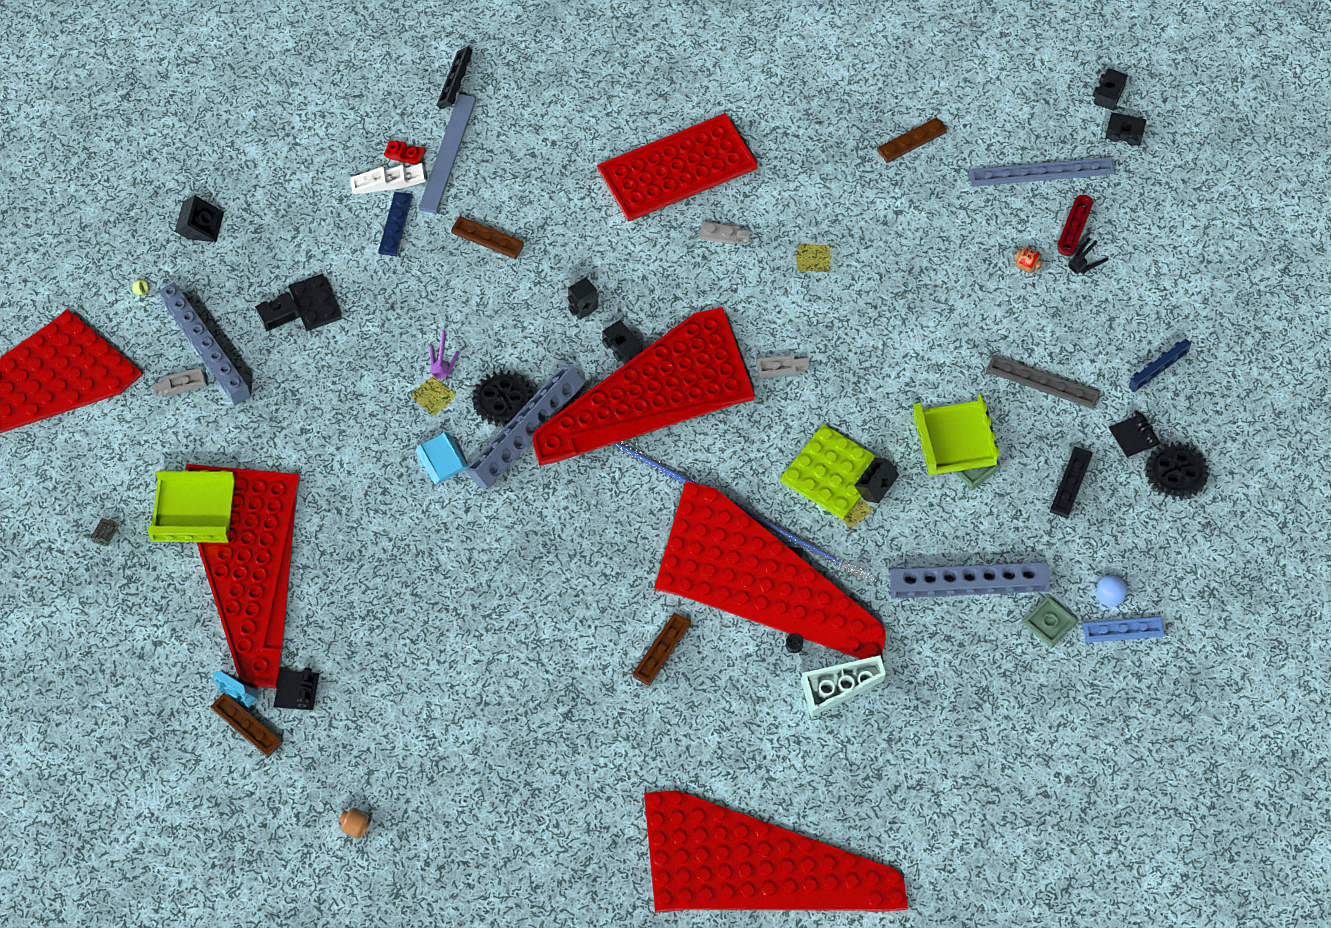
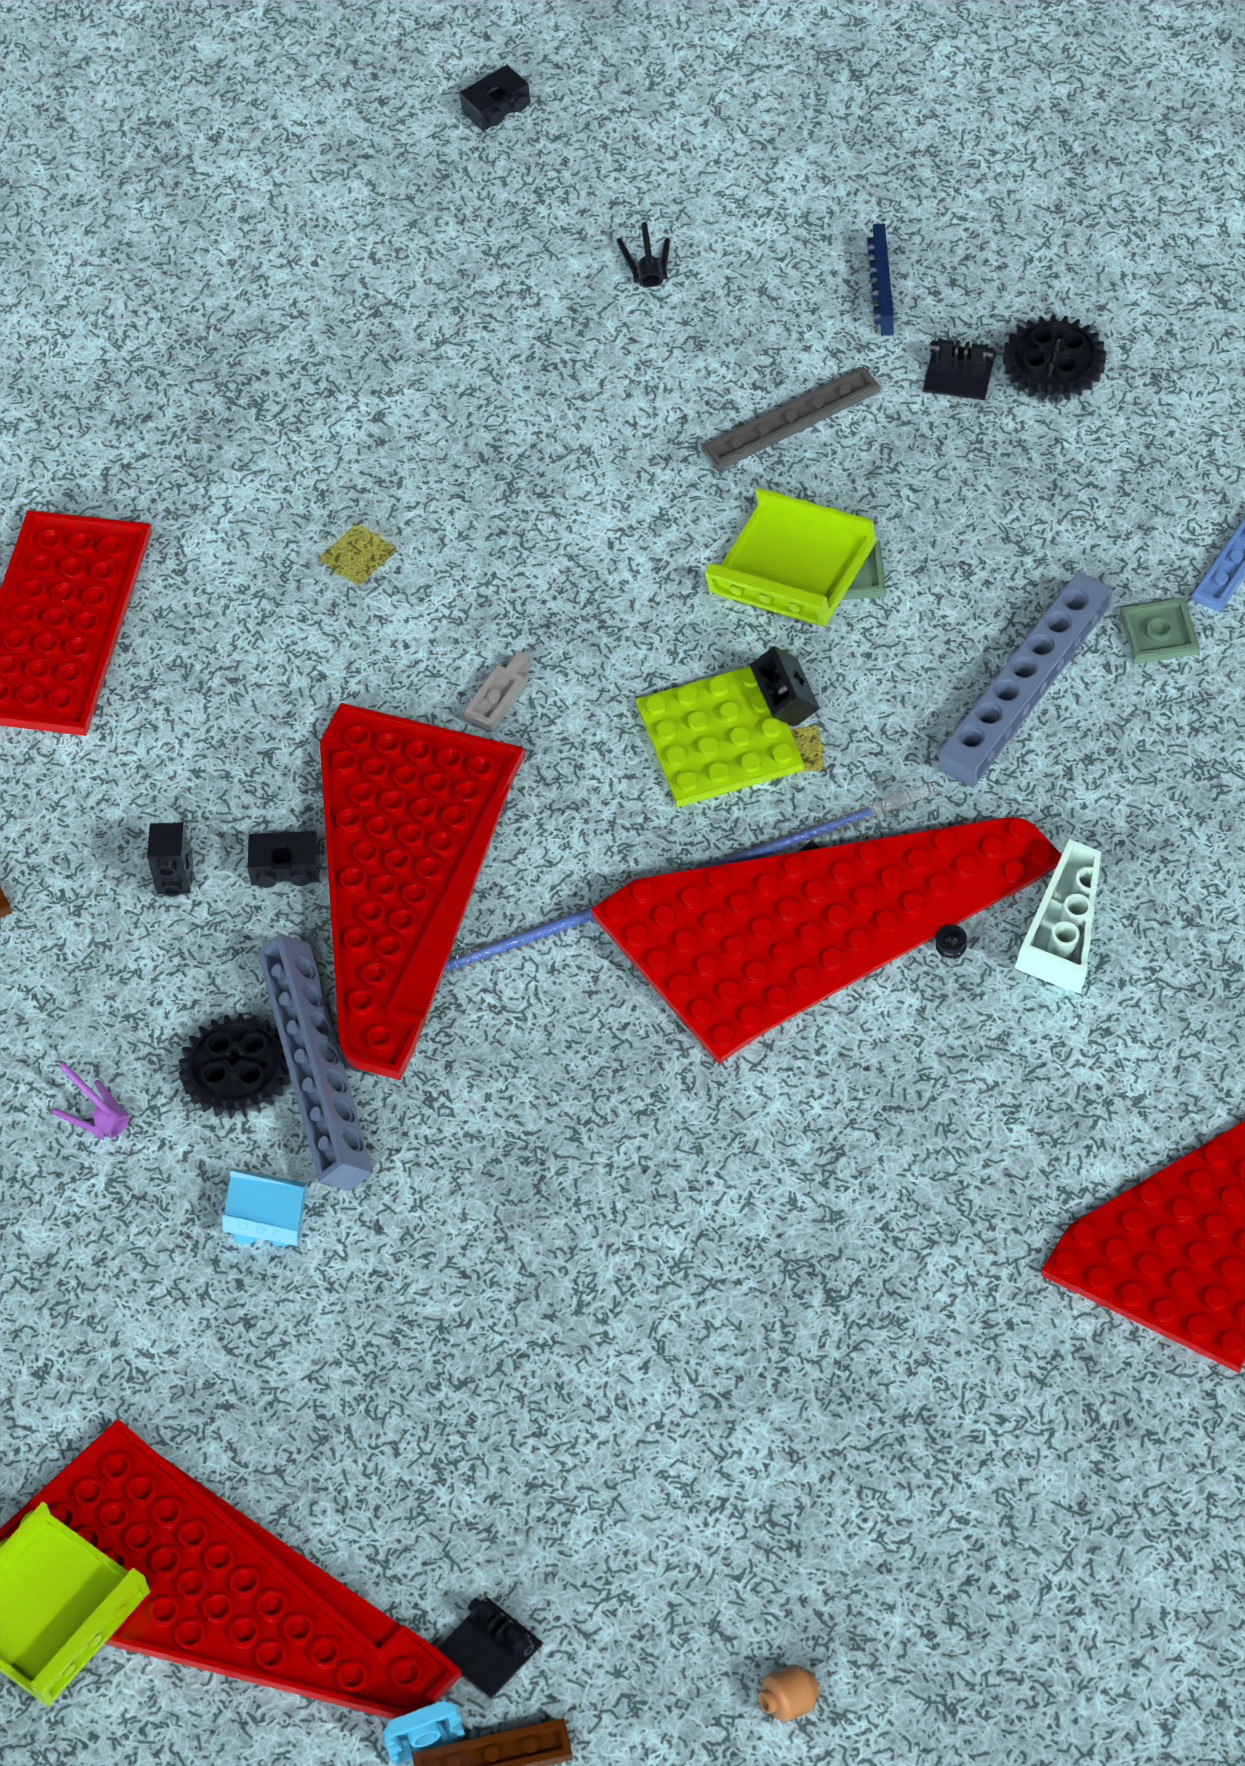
camera: 50 degrees left, 5 degrees down
(433, 396) = (142, 1159): clear yellow piece -> none
(661, 649) = (828, 1109): reddish brown plate -> none
(723, 233) = (218, 633): light grey hinge -> none
(911, 140) = (281, 332): reddish brown plate -> none
(1028, 259) = (593, 318): medium nougat head -> none
(1041, 171) = (468, 226): sand blue tile -> none
(1071, 482) = (972, 478): black plate -> none
(1075, 225) = (587, 239): dark red plate -> none
(1110, 90) = (418, 76): black brick -> none
(1111, 590) = (1169, 535): light blue hair -> none

